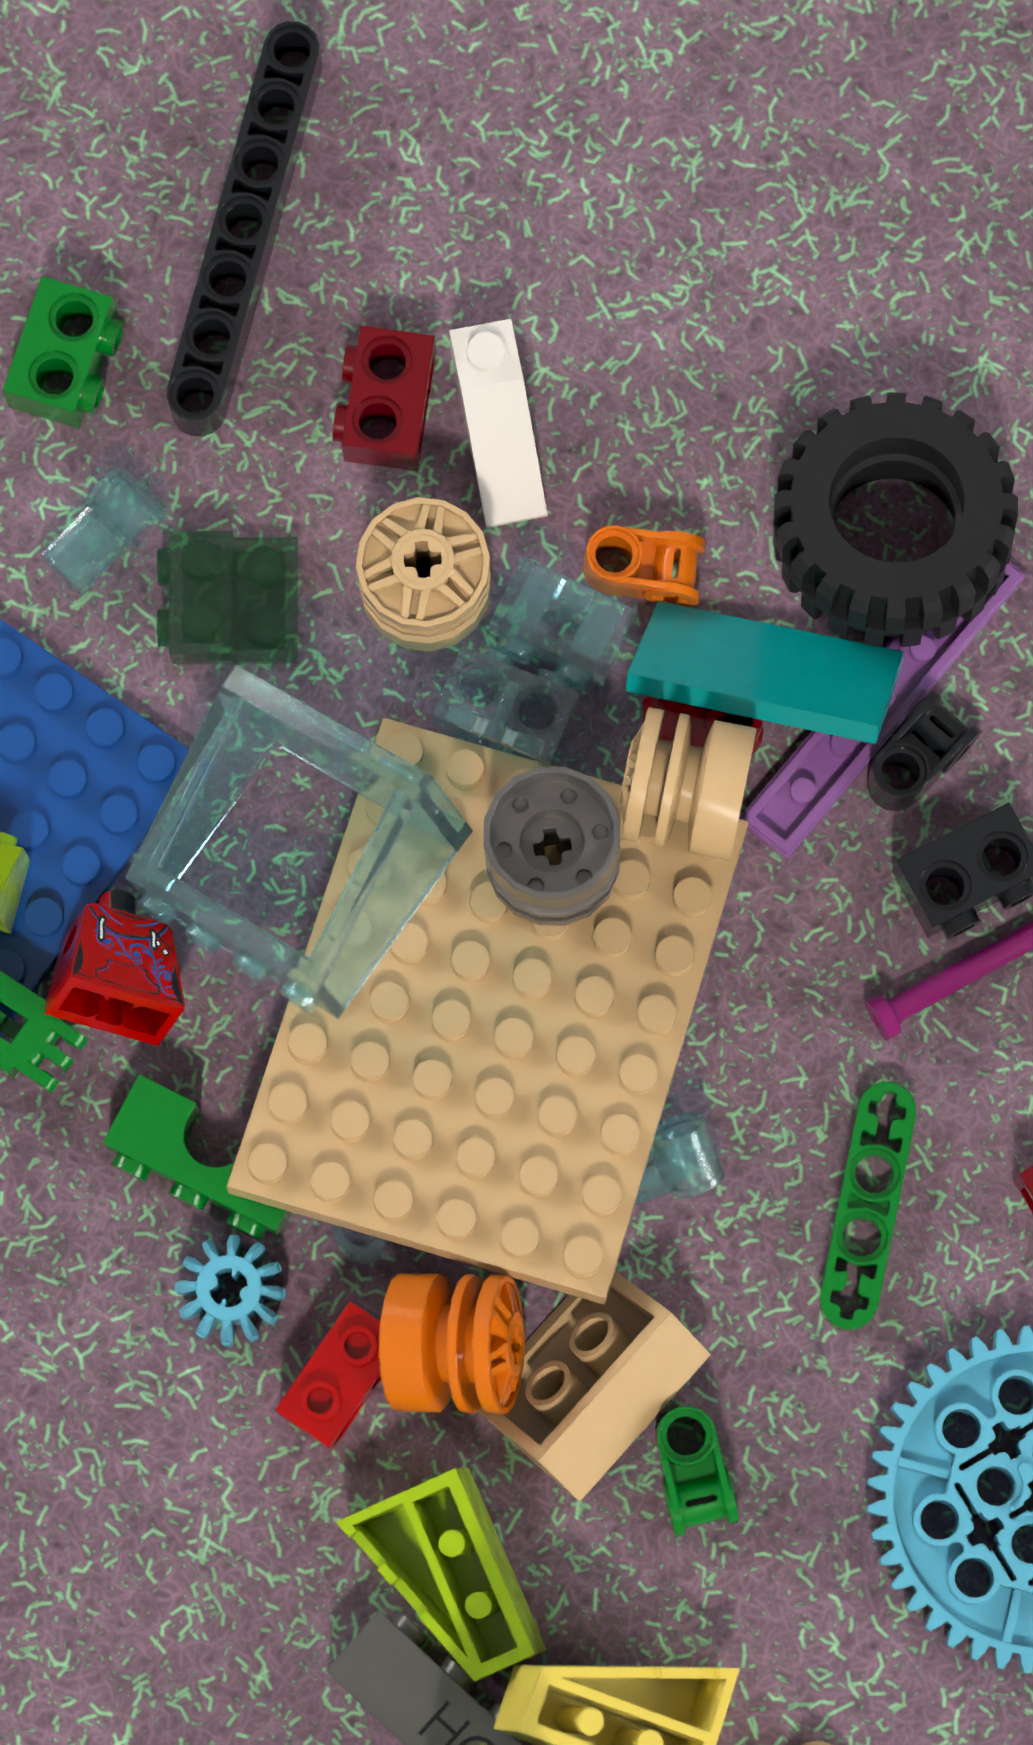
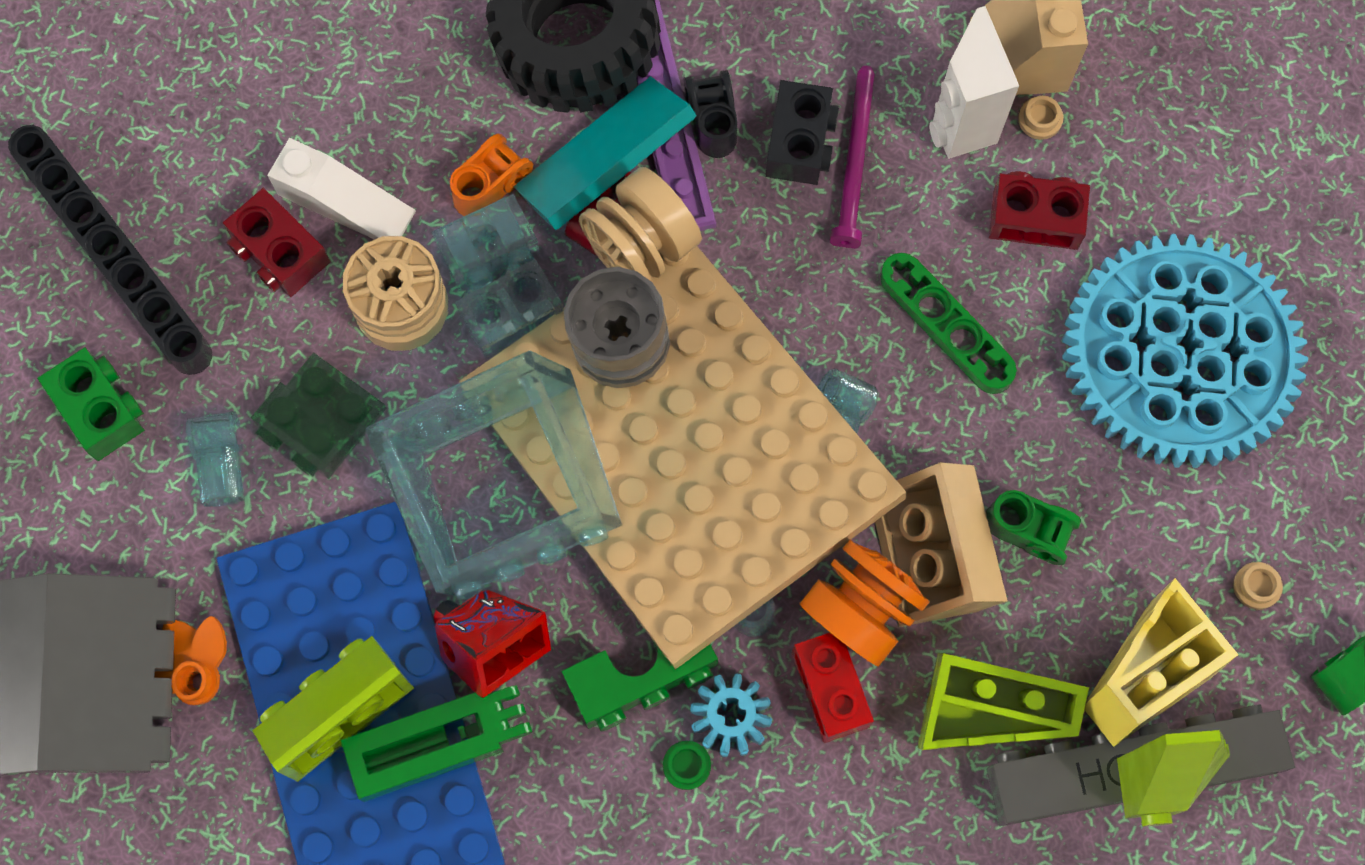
camera: 55 degrees left, 5 degrees down
(144, 1284) = (686, 765): none -> green plate

